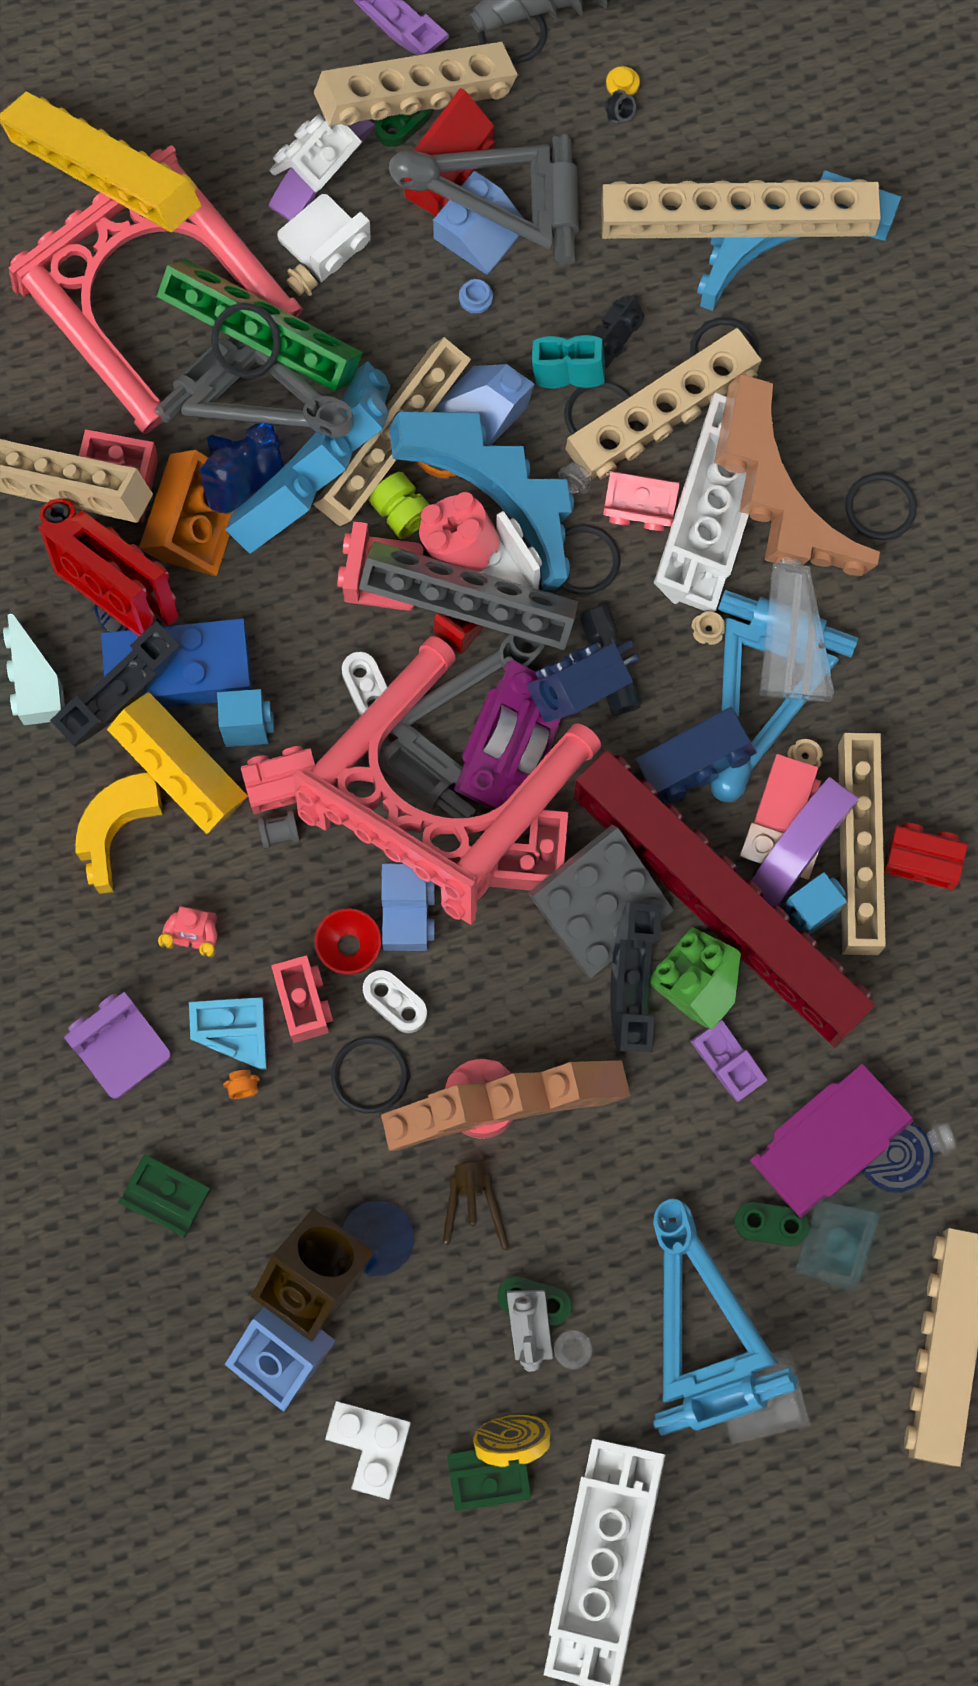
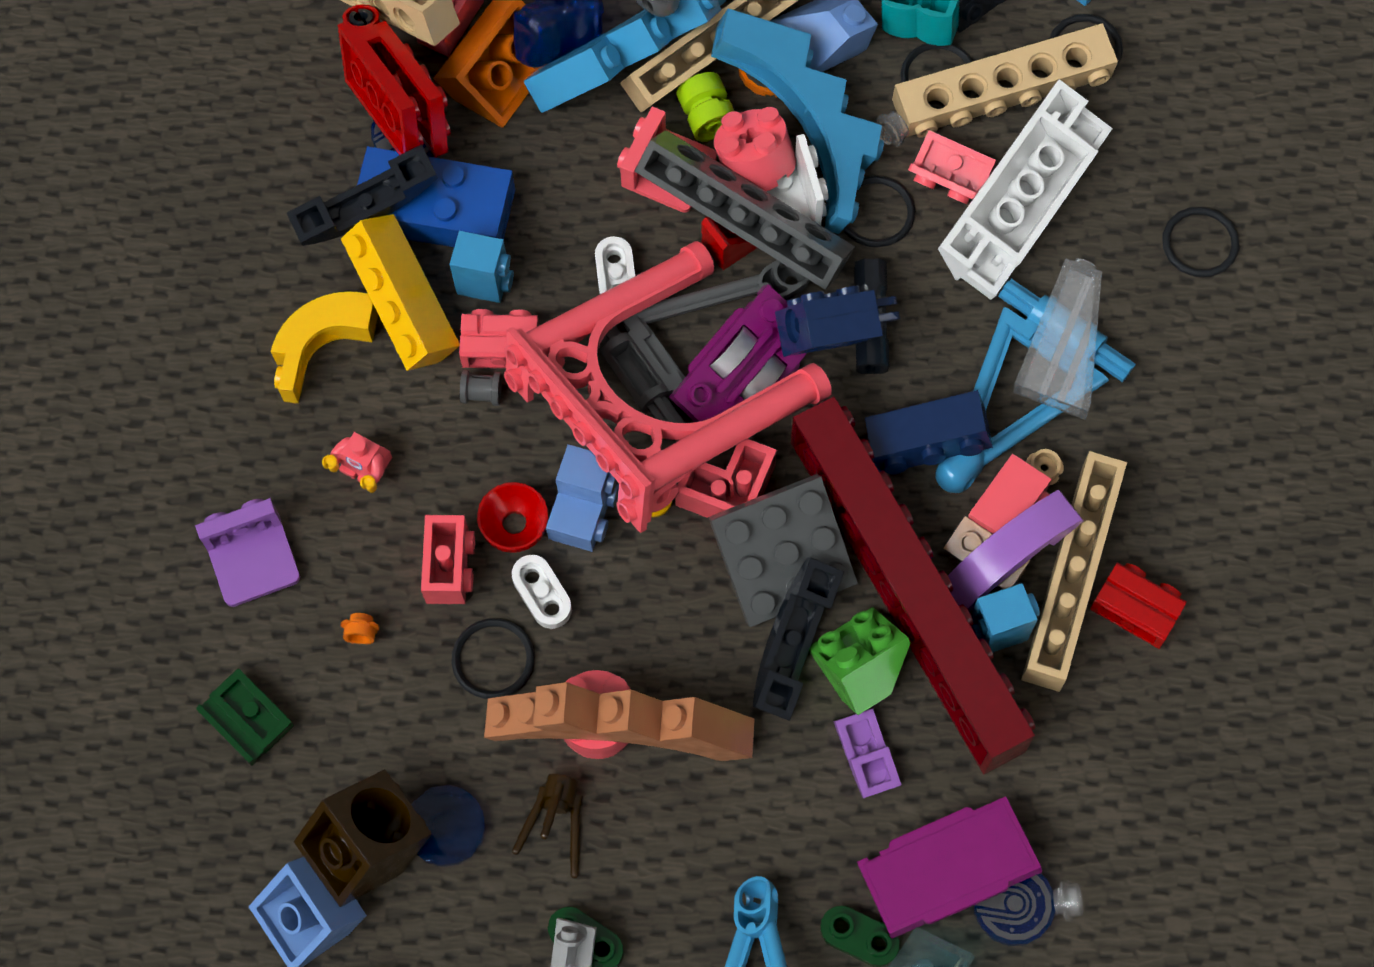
camera: 20 degrees right, 5 degrees down
(37, 686) = (288, 172): light aqua slope -> none
(231, 1028) = (368, 570): medium azure wing -> none
(708, 619) = (983, 303): tan plate -> none
(768, 494) = (1085, 191): nougat arch -> none

